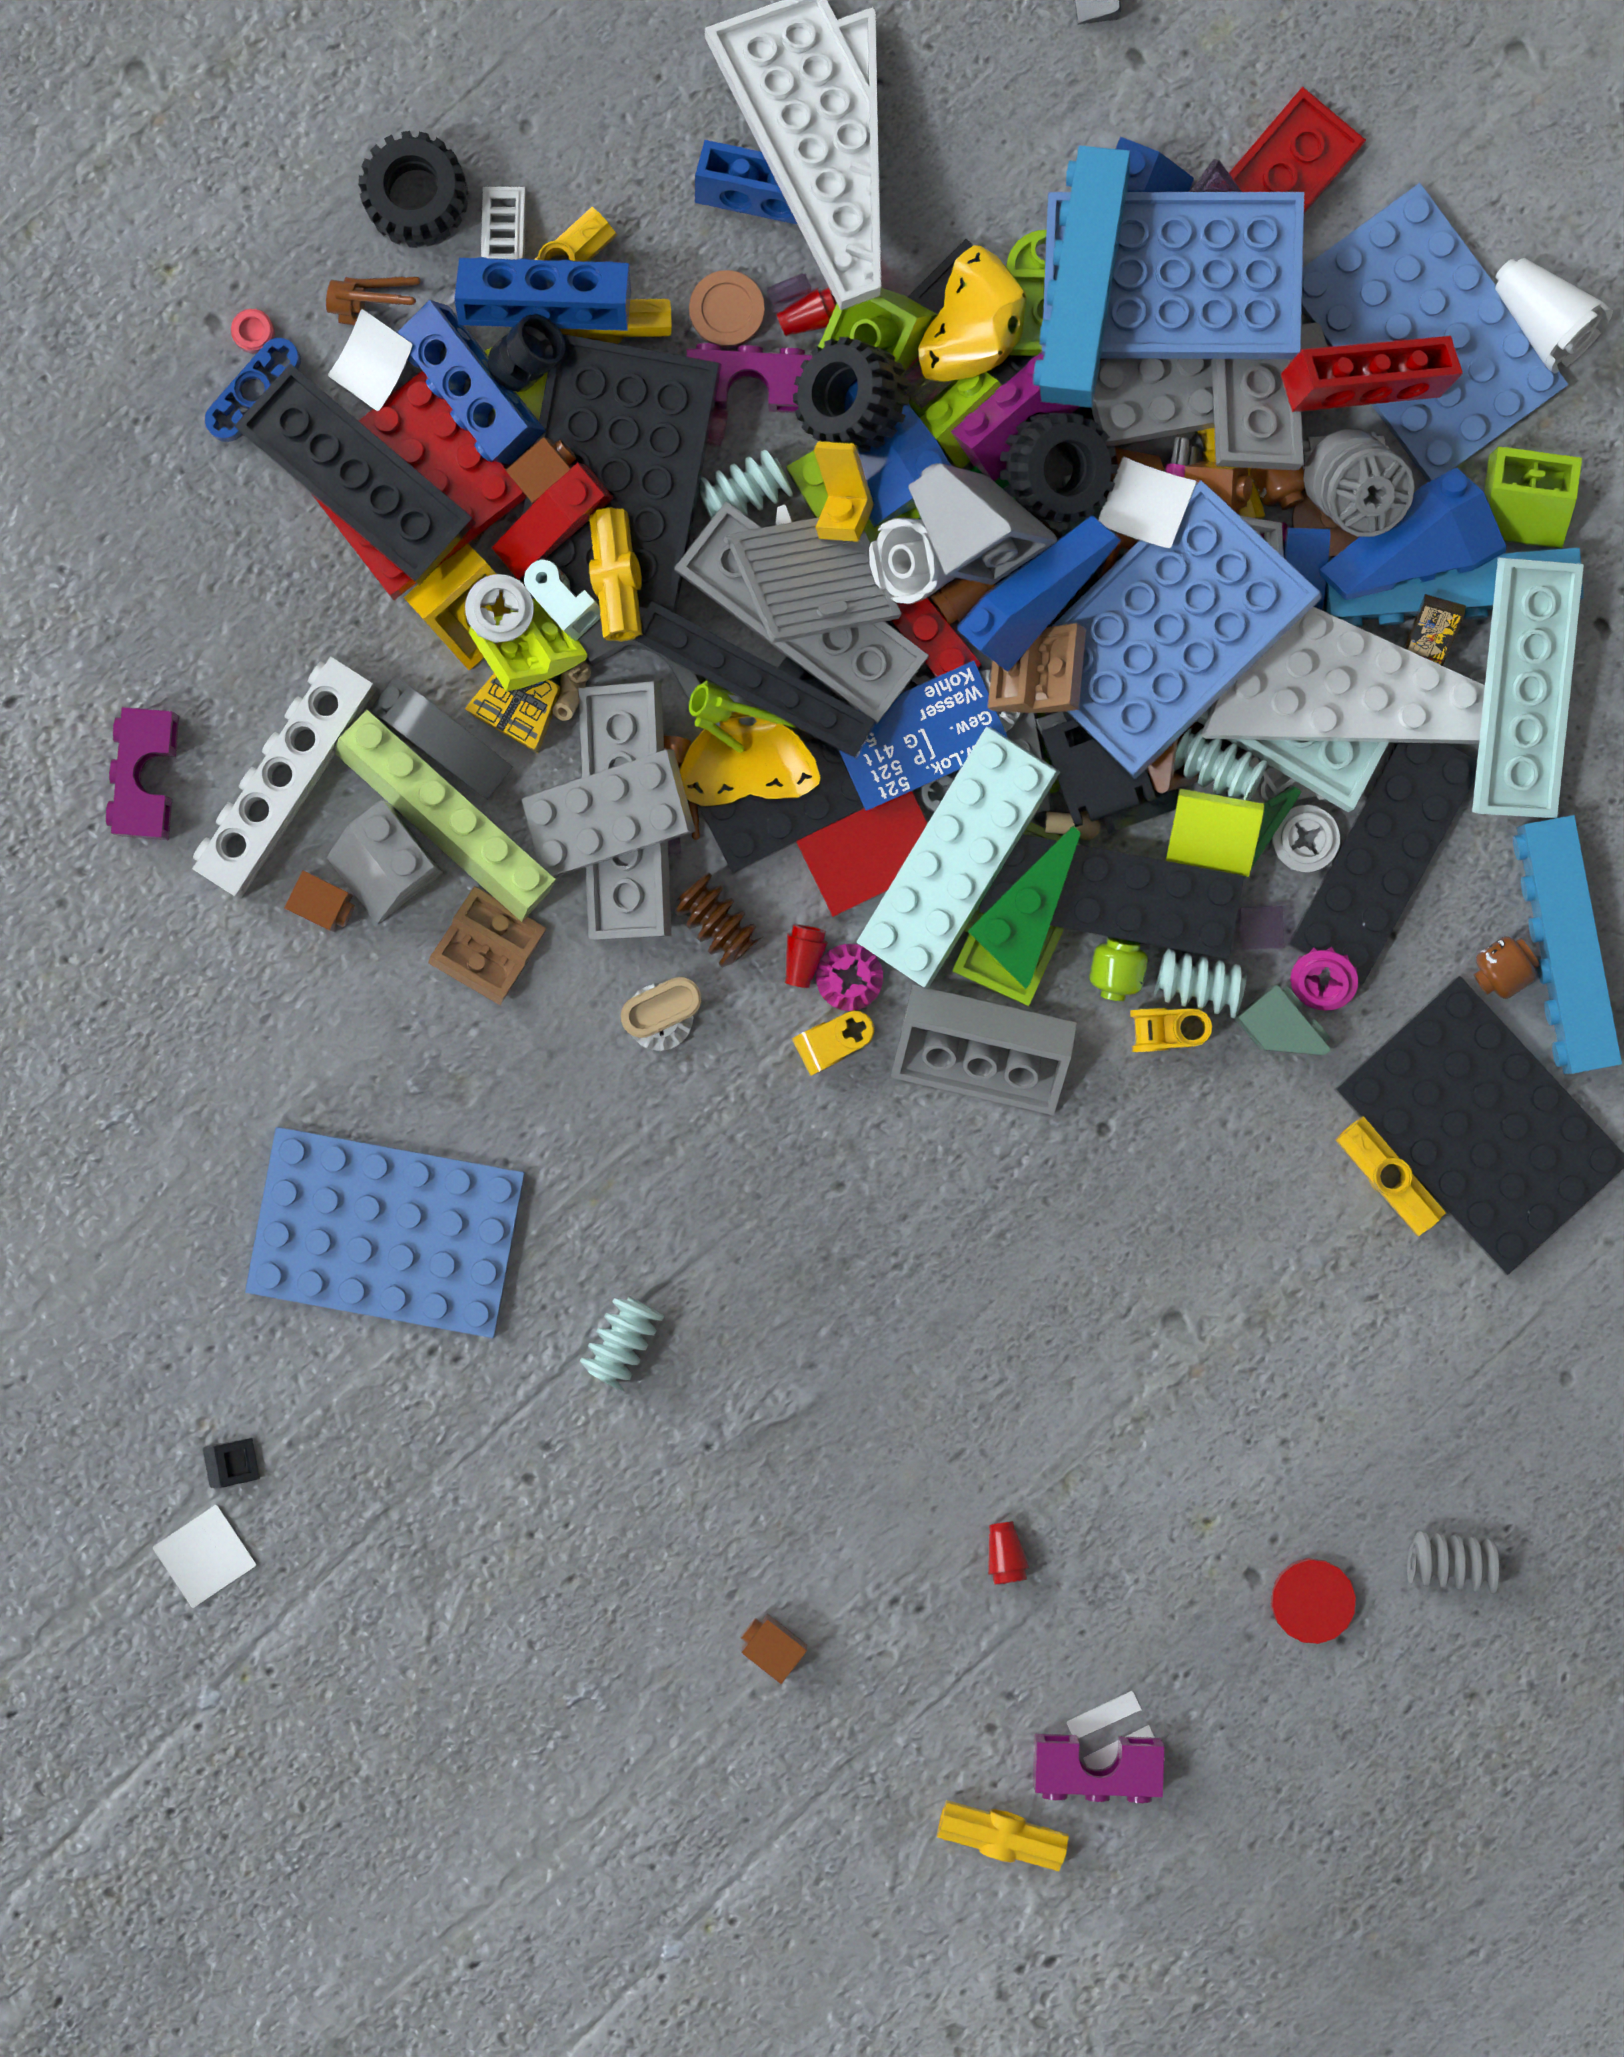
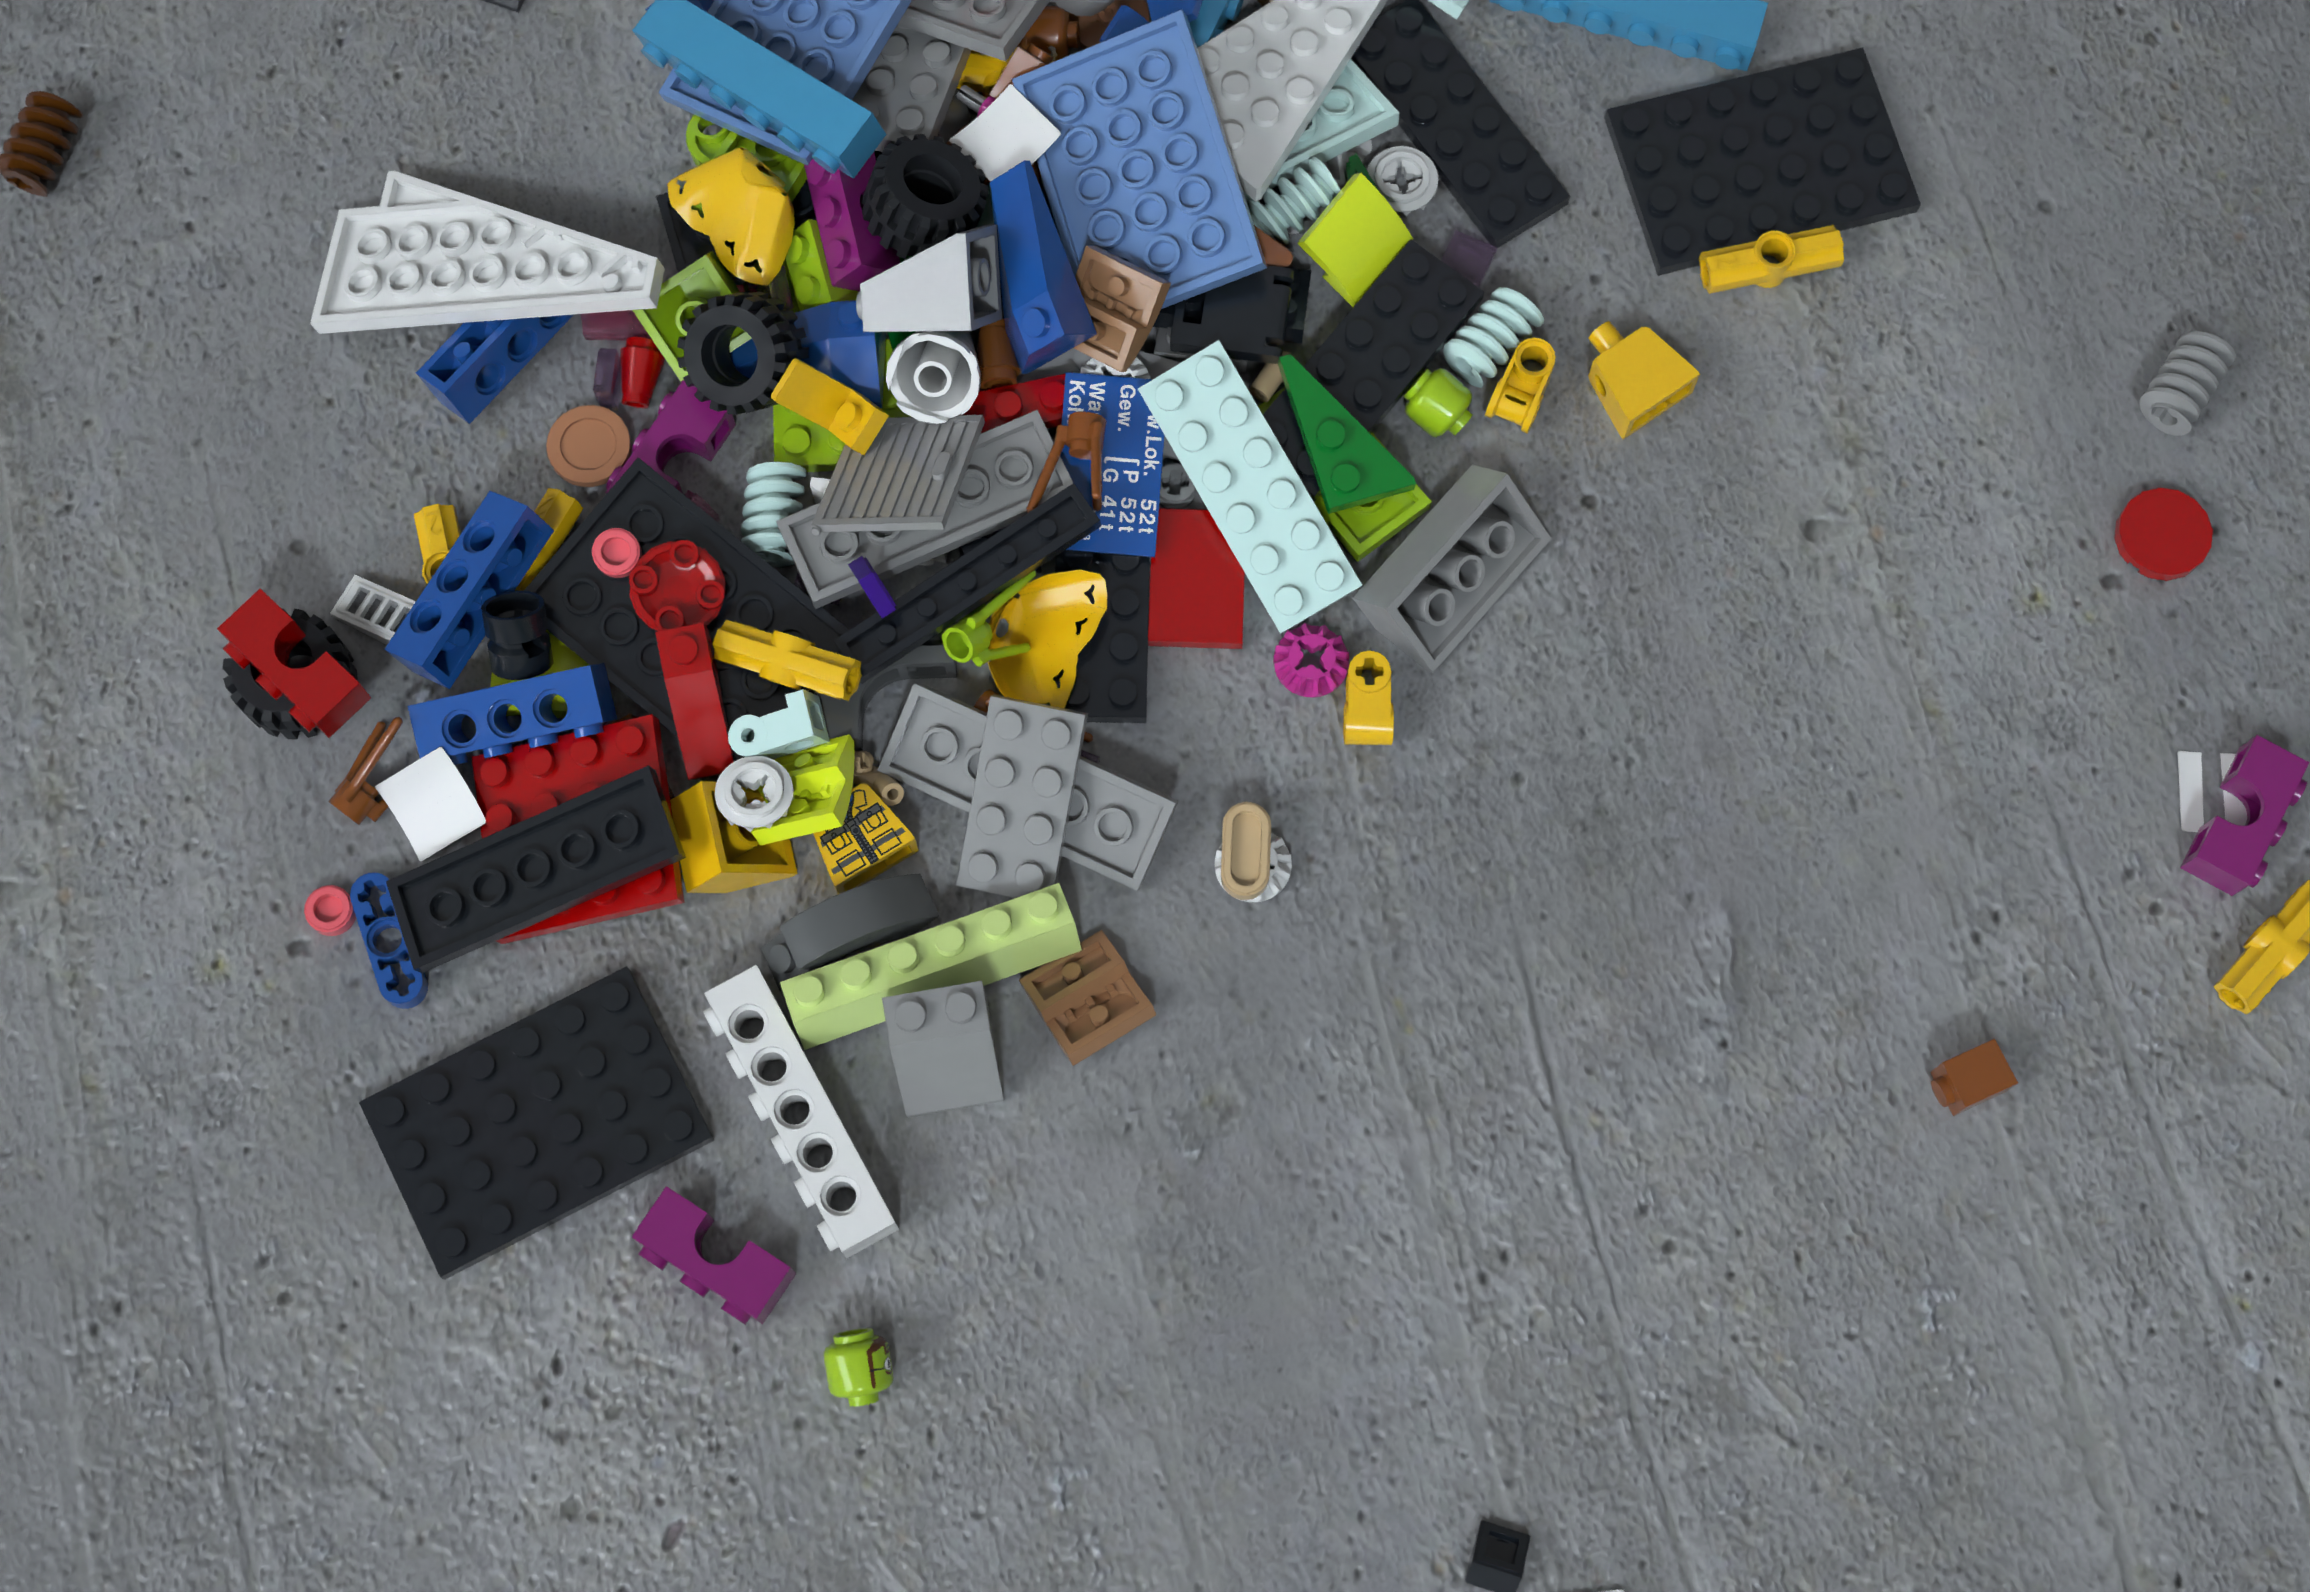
camera: 60 degrees left, 15 degrees down
(120, 925) = (858, 1366): none -> lime head
(176, 582) = (535, 1122): none -> black plate
(320, 902) = (950, 1141): dark orange brick -> none
(385, 1232) = (1330, 1260): medium blue plate -> none
(415, 159) = (264, 636): none -> red arch
(541, 467) = (639, 679): dark orange brick -> none
(621, 1341) = (1571, 1068): light aqua piece -> none
(630, 455) = (677, 586): none -> red dish
(633, 391) = (616, 552): none -> coral tile
(706, 608) = (872, 586): none -> dark purple tile
(716, 921) = (1186, 753): reddish brown piece -> none
(803, 954) = (1265, 689): red cone -> none
(921, 708) = (1085, 441): none -> dark orange plant
(1006, 1555) = (1981, 798): red cone -> none
(1227, 1116) = (1637, 376): none -> yellow torso
(1279, 1026) = (1573, 284): sand green slope -> none
(1307, 986) = (1565, 224): dark pink gear -> none
(1506, 967) = (1621, 62): dark orange head -> none

